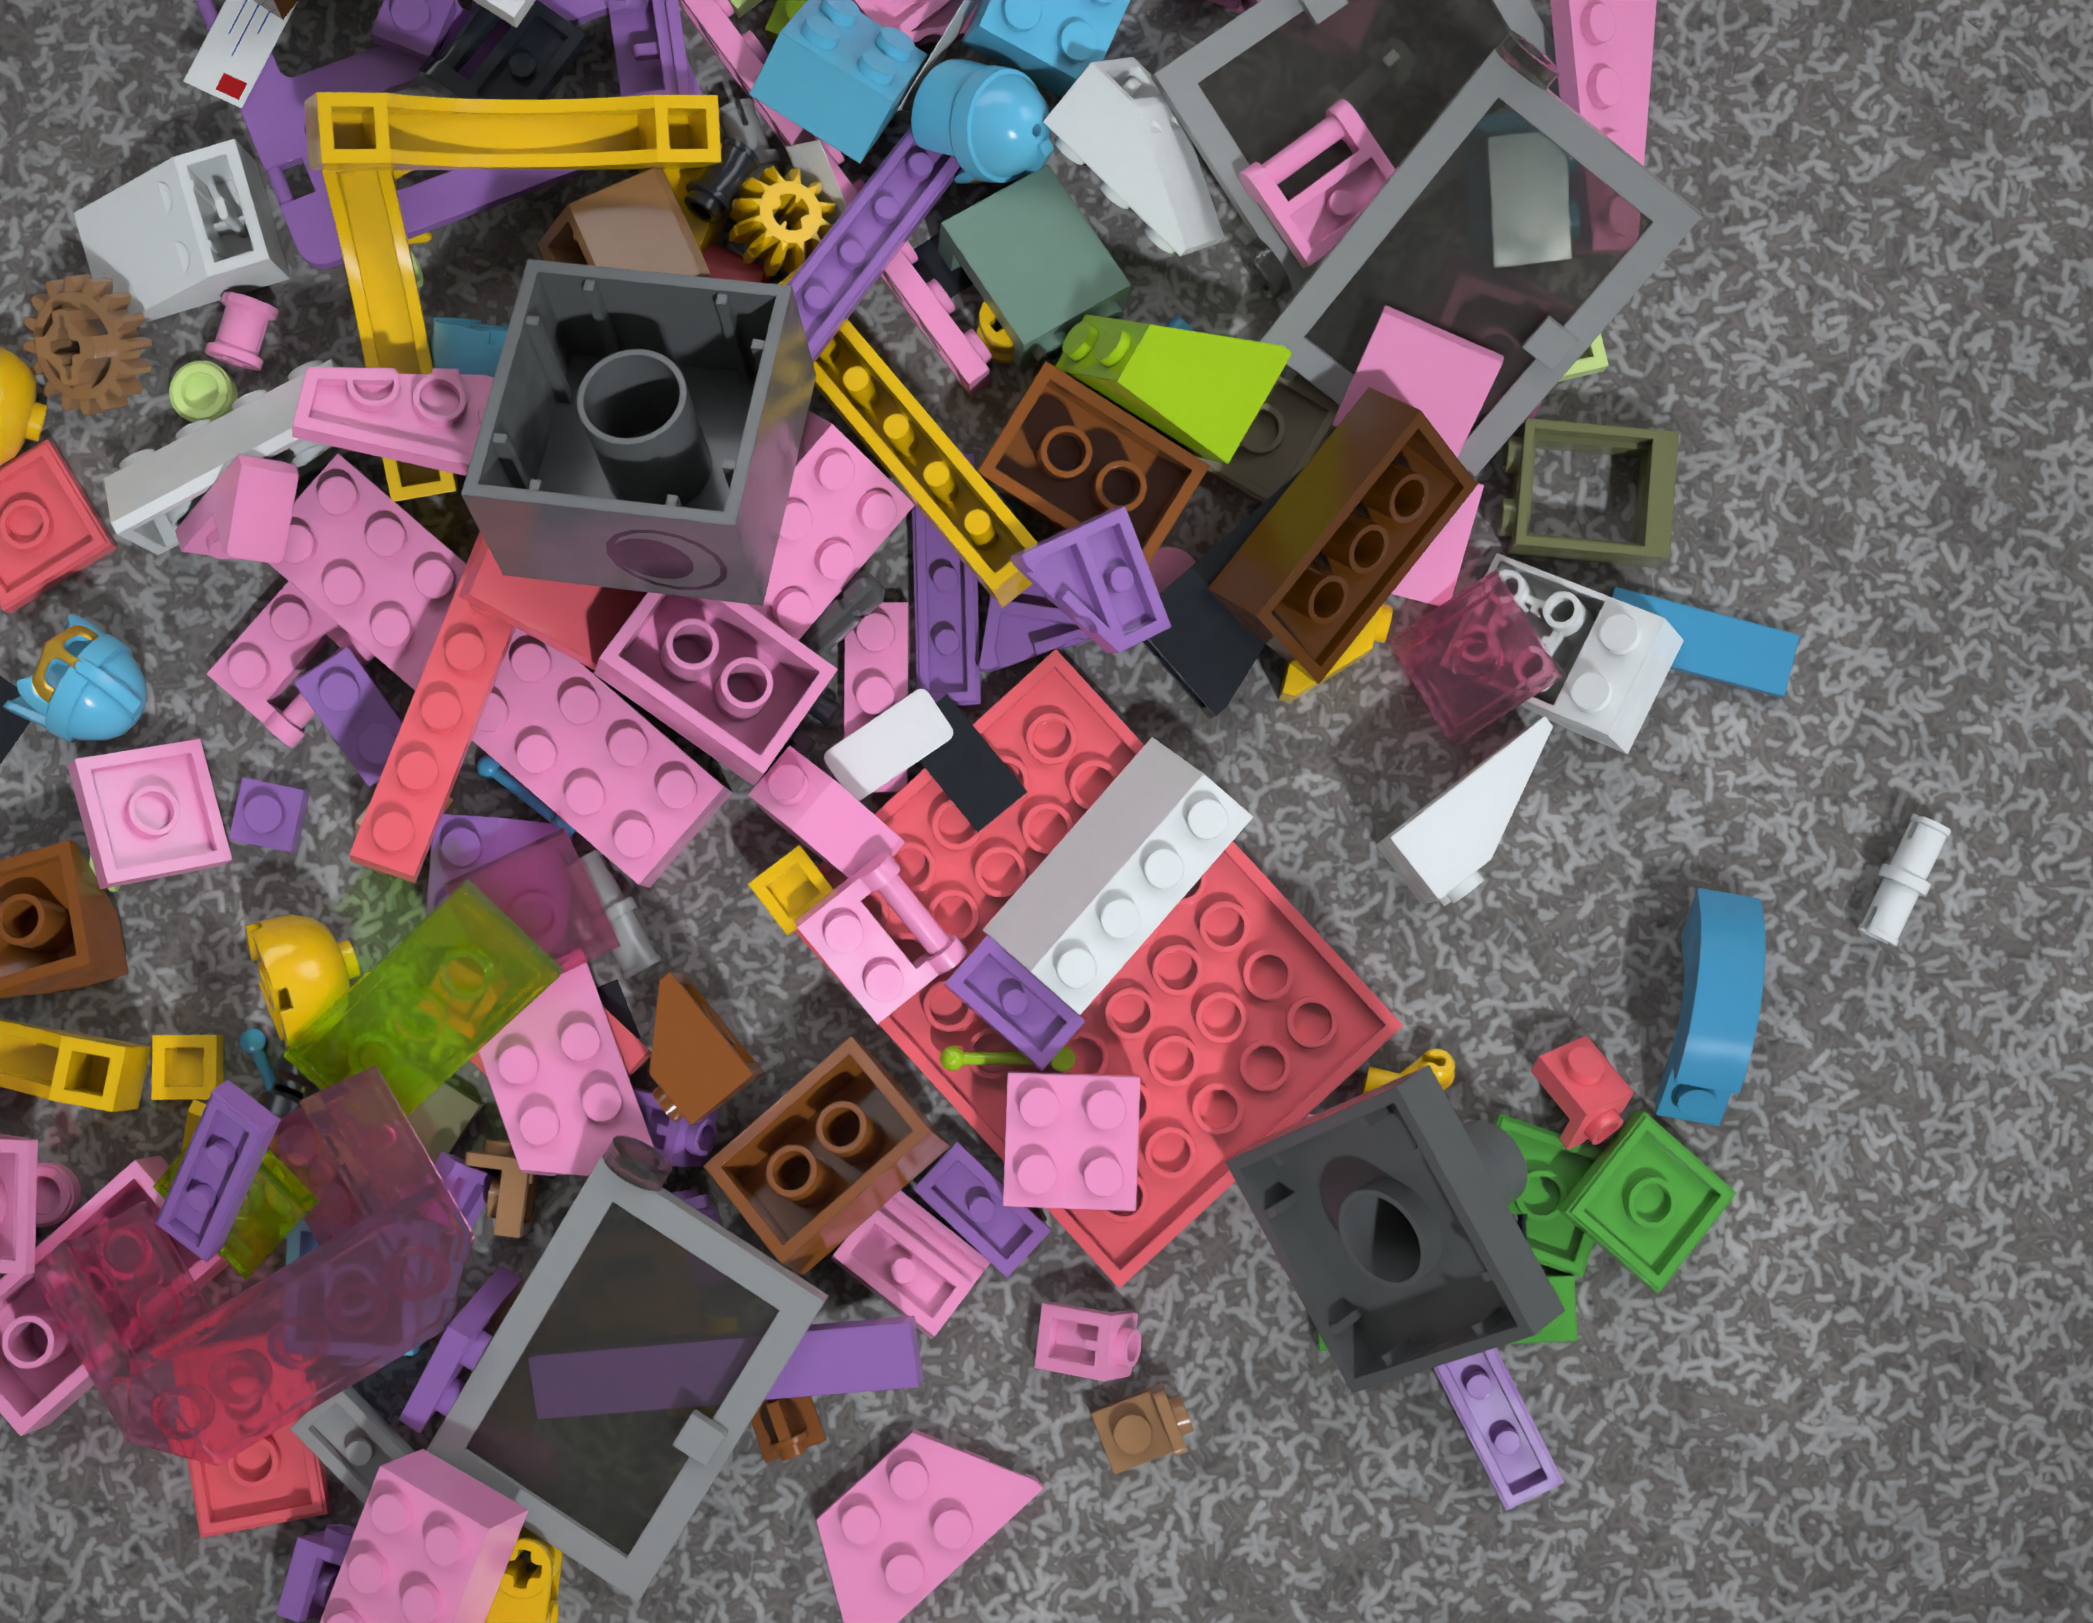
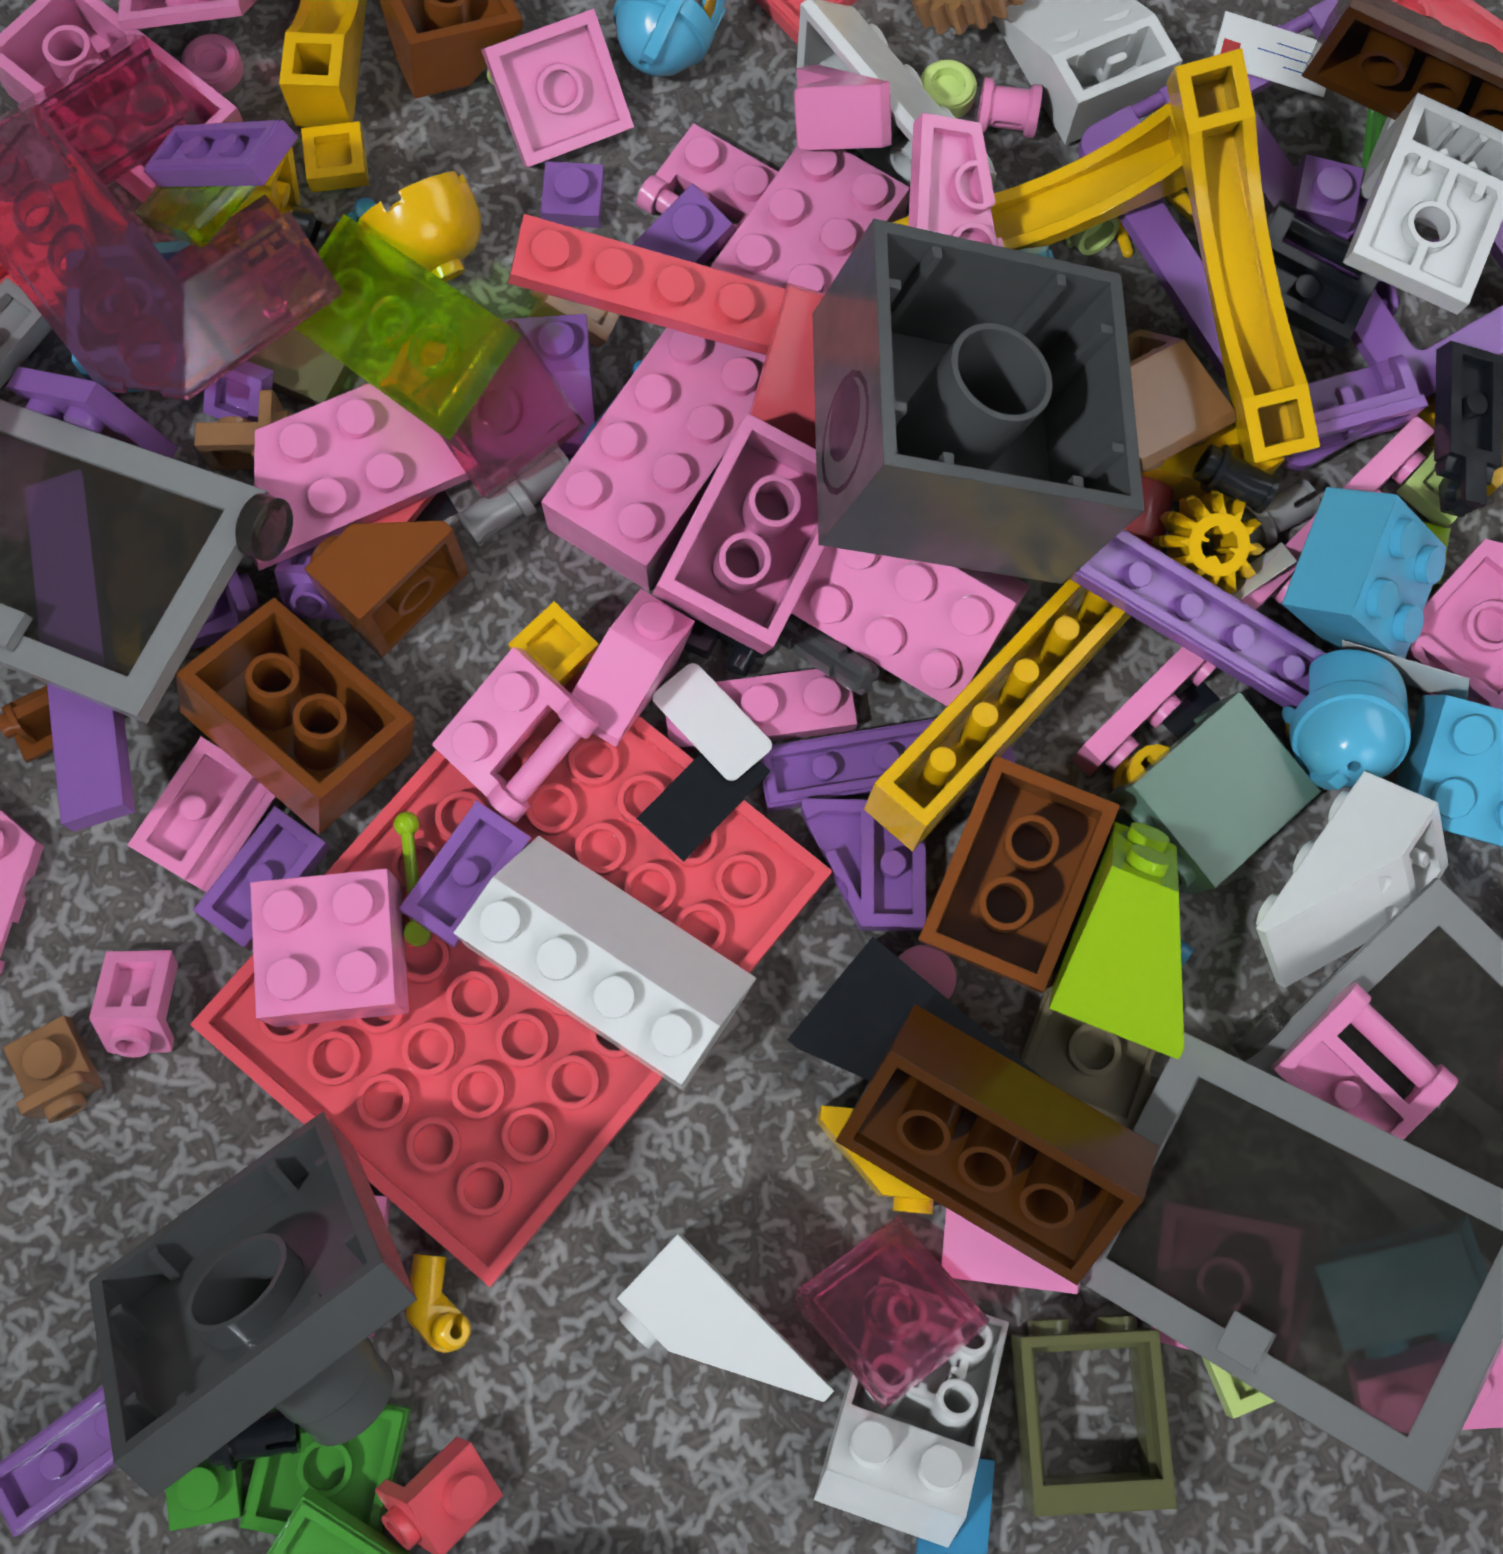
camera: 75 degrees right, 10 degrees down
(1098, 580) = (904, 889): medium lavender wing -> none
(1427, 371) = (1187, 1211): bright pink tile -> none

